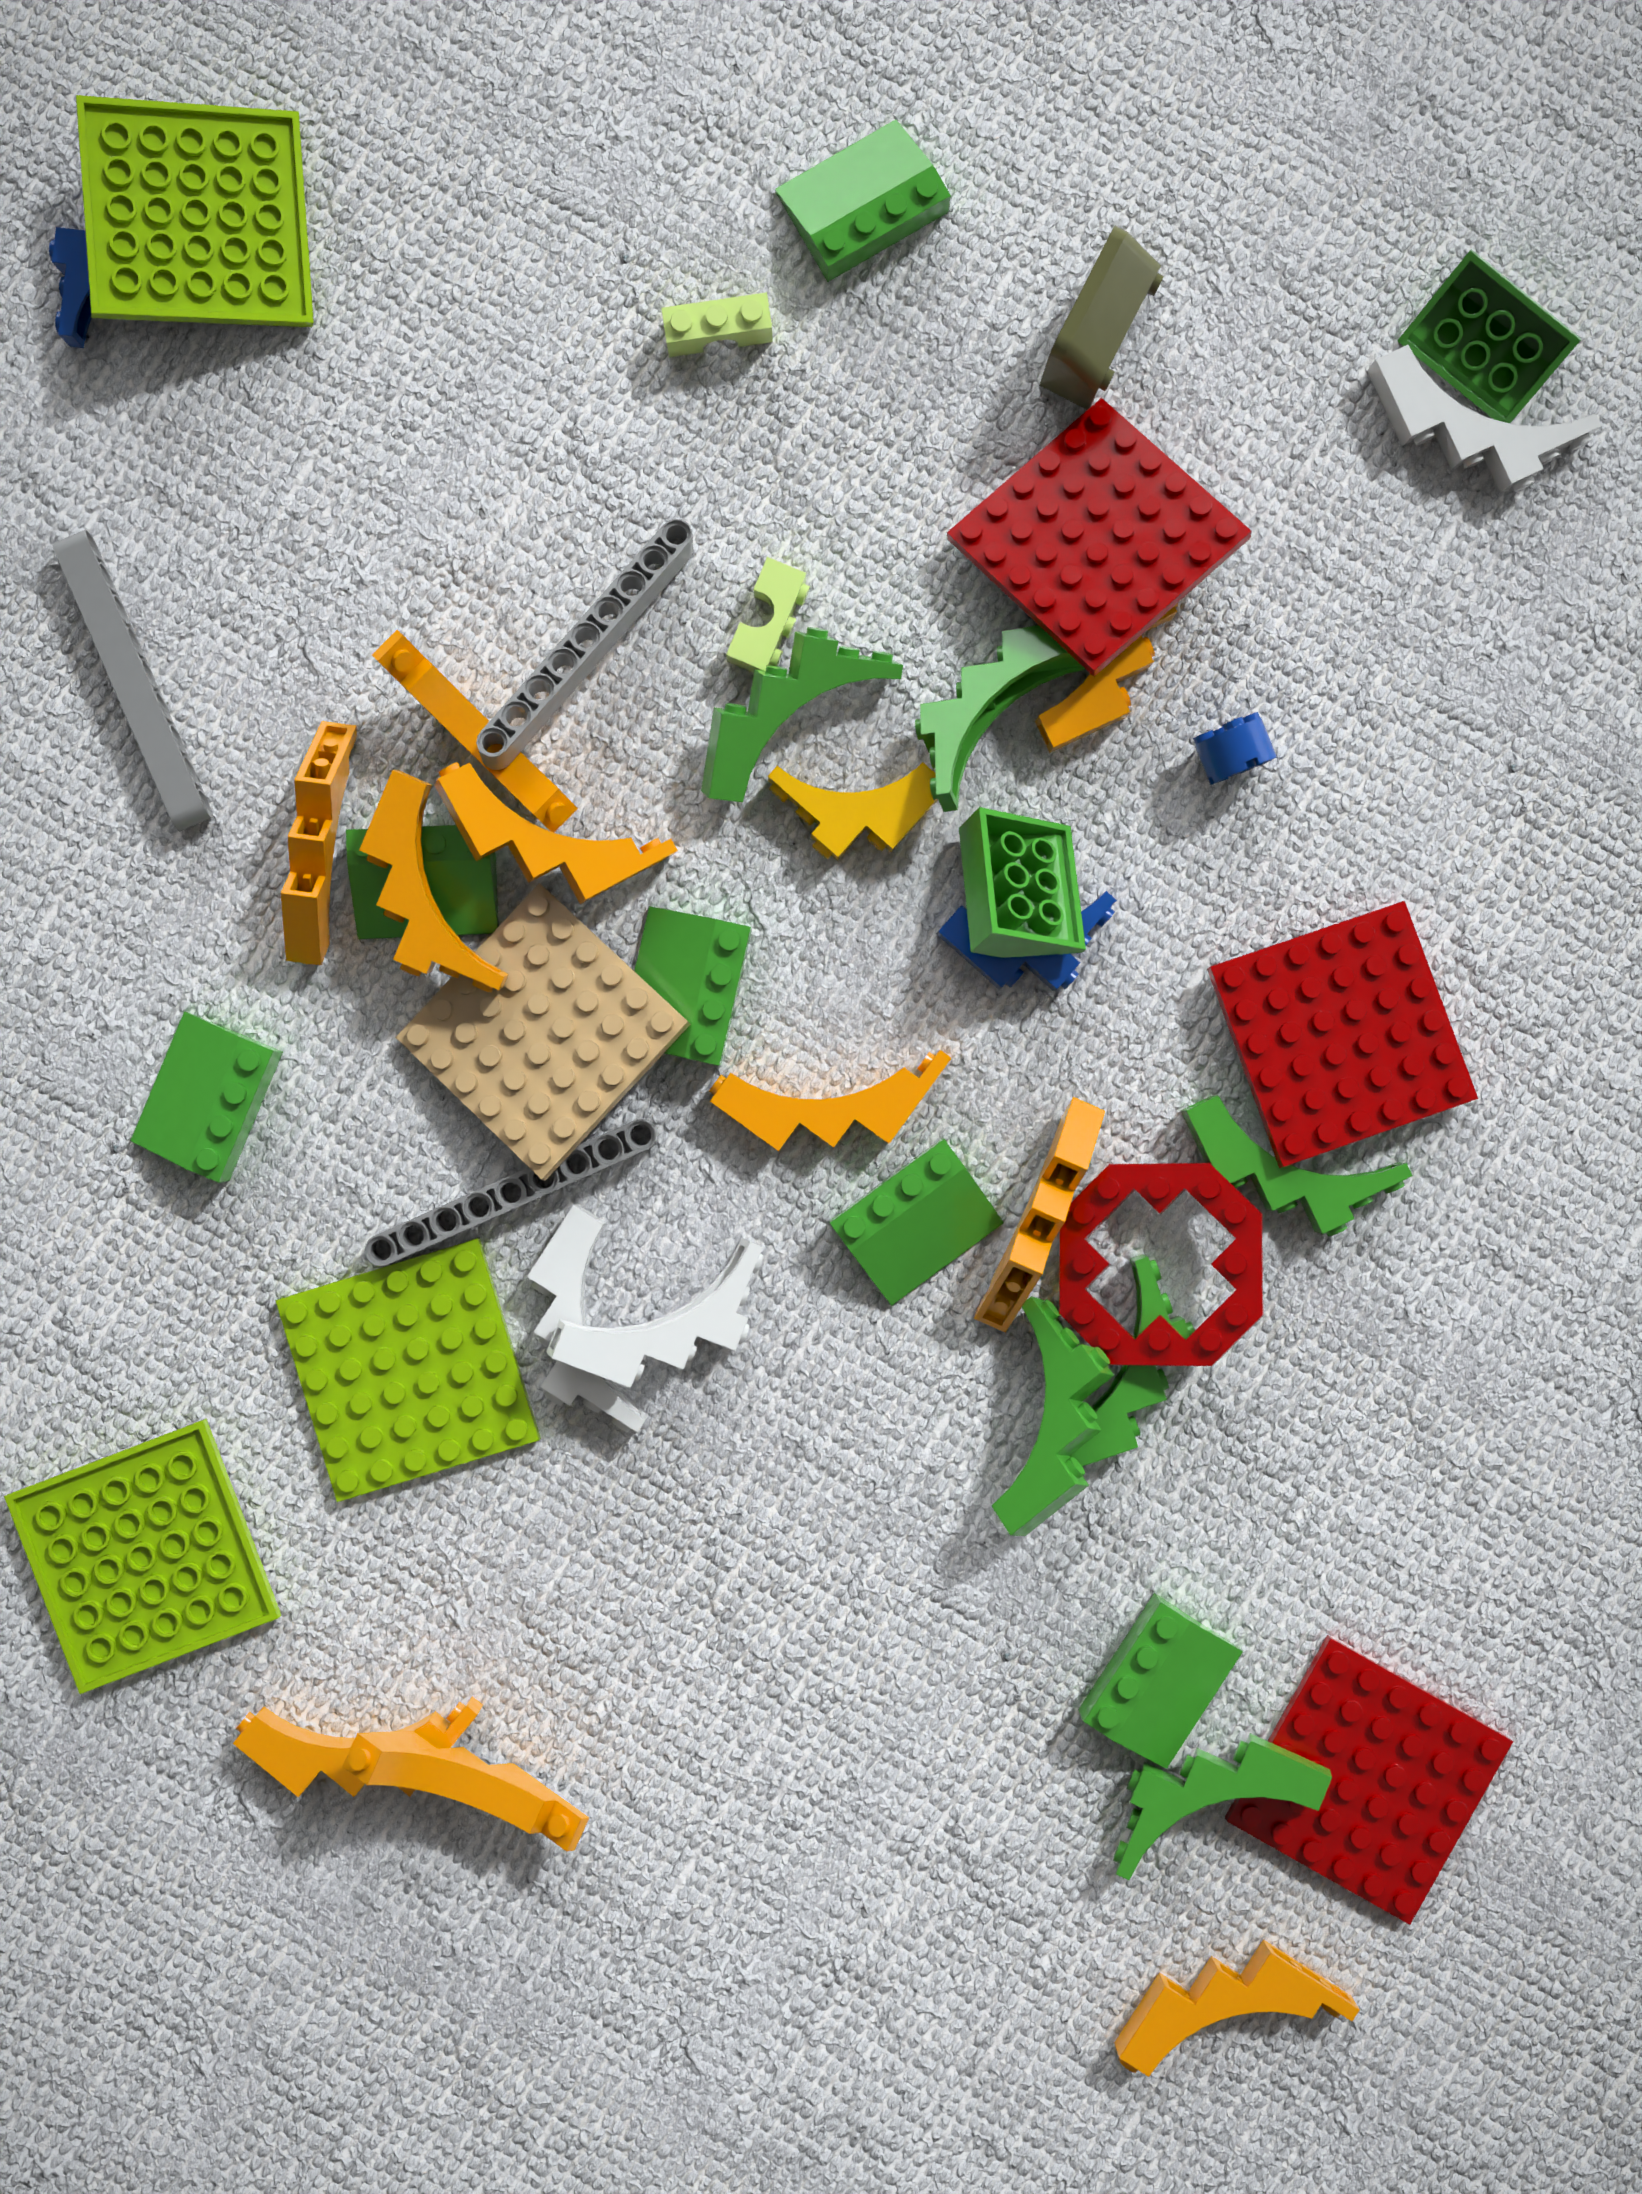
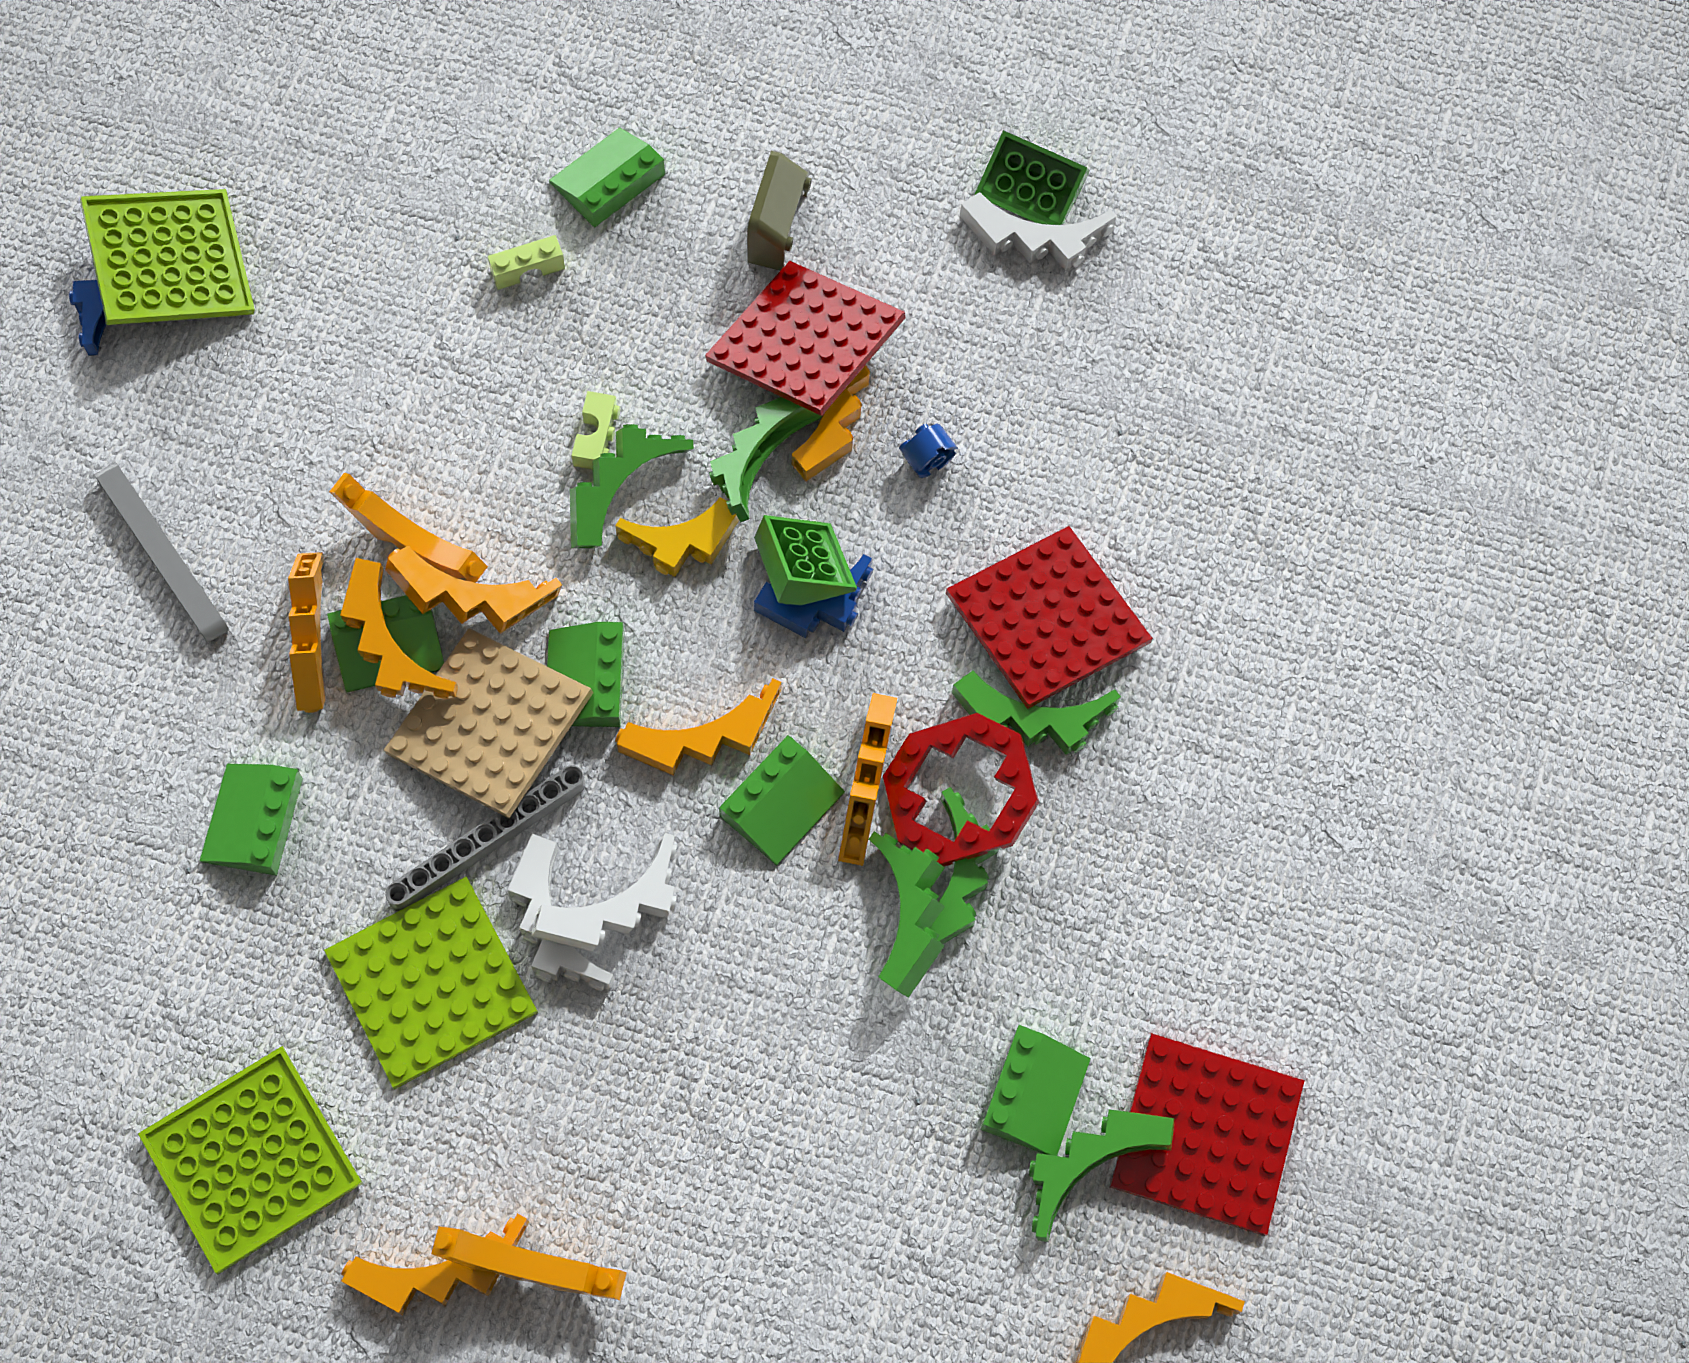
camera: 20 degrees left, 20 degrees down
(584, 659) = (473, 466): light grey beam -> none

